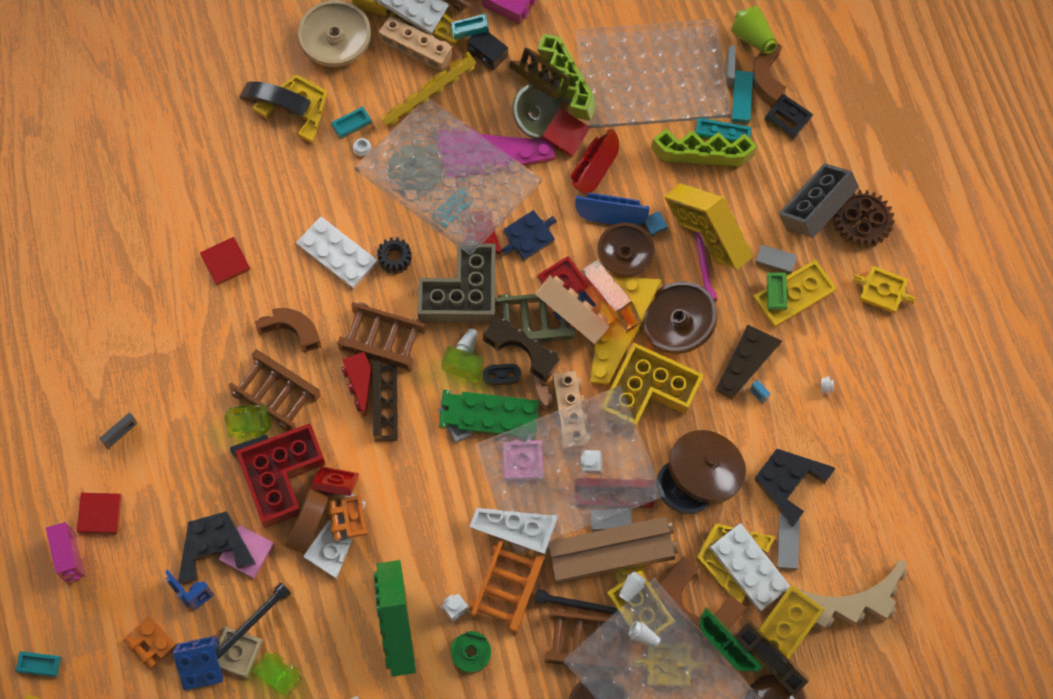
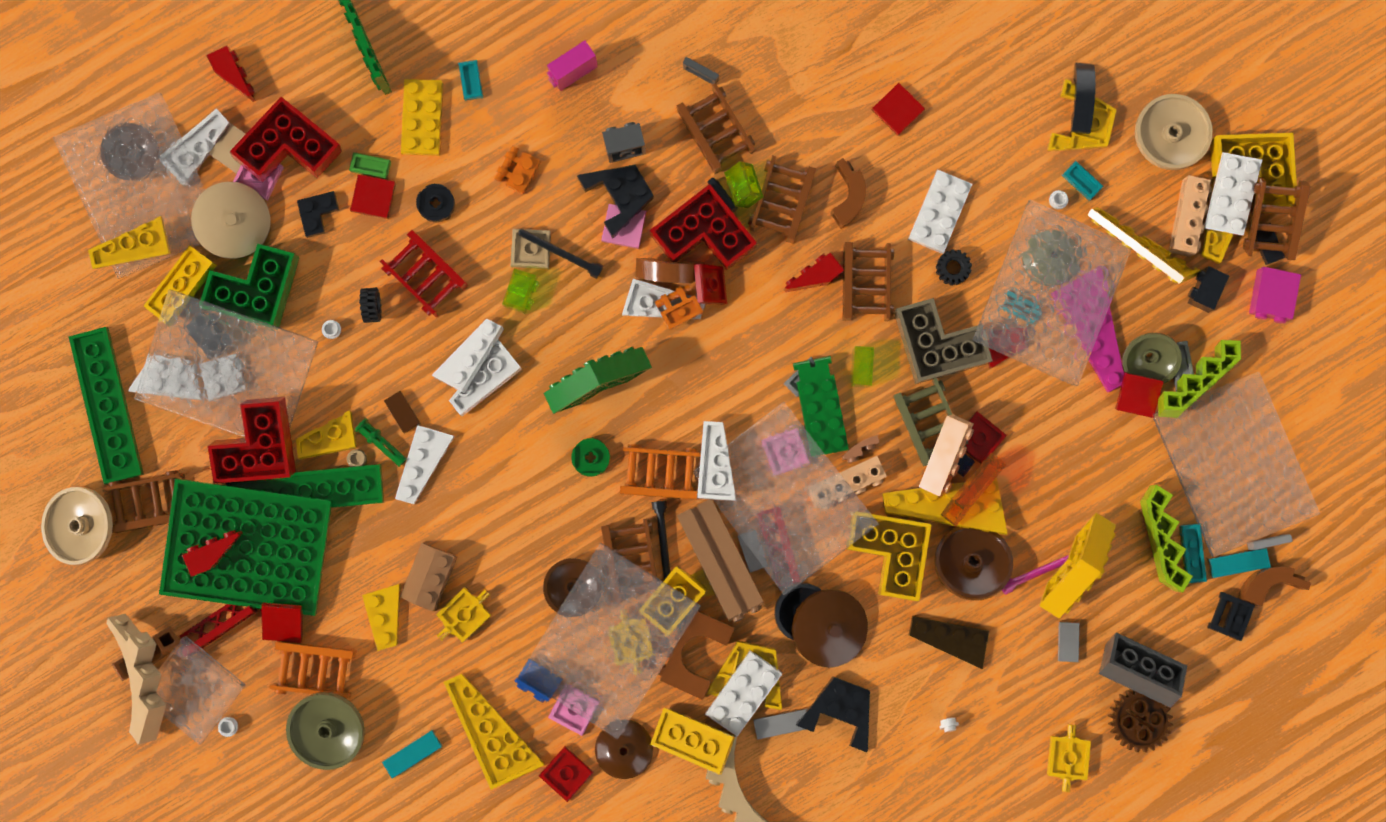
camera: 75 degrees right, 15 degrees up
(99, 513) = (620, 82): red tile -> none
(163, 523) = (624, 142): none -> dark grey brick
(193, 447) = (696, 129): none -> dark orange fence
(196, 597) = (563, 186): blue bracket -> none
(198, 663) = (511, 217): blue bracket -> none
(377, 402) = (800, 298): dark brown fence -> none
(454, 607) = (626, 429): white brick -> none
(468, 341) = (884, 364): white cone -> none
(470, 26) = (1224, 264): teal tile -> none
(501, 372) = (863, 407): black plate -> none
(502, 335) = (898, 394): dark brown arch -> none
(528, 235) = (1016, 390): dark blue plate -> none
(541, 79) = (1187, 351): dark brown fence -> none
(591, 462) = (794, 517): white brick -> none
(595, 162) = (1115, 434): red brick -> none
(611, 209) = (1069, 464): blue brick -> none
(628, 239) = (1041, 485): reddish brown dish -> none
(632, 586) = (687, 588): white cone -> none
(643, 634) = (643, 610): white cone -> none
(655, 223) = (1068, 511): dark azure tile -> none
(723, 640) = (662, 691): green brick -> none
(753, 29) = (1317, 557): lime cone -> none
(760, 391) = (921, 660): dark azure tile -> none
(776, 291) = (1031, 651): bright green tile -> none
(779, 664) = (669, 720): dark brown arch -> none
(804, 290) = (1036, 669): yellow plate -> none

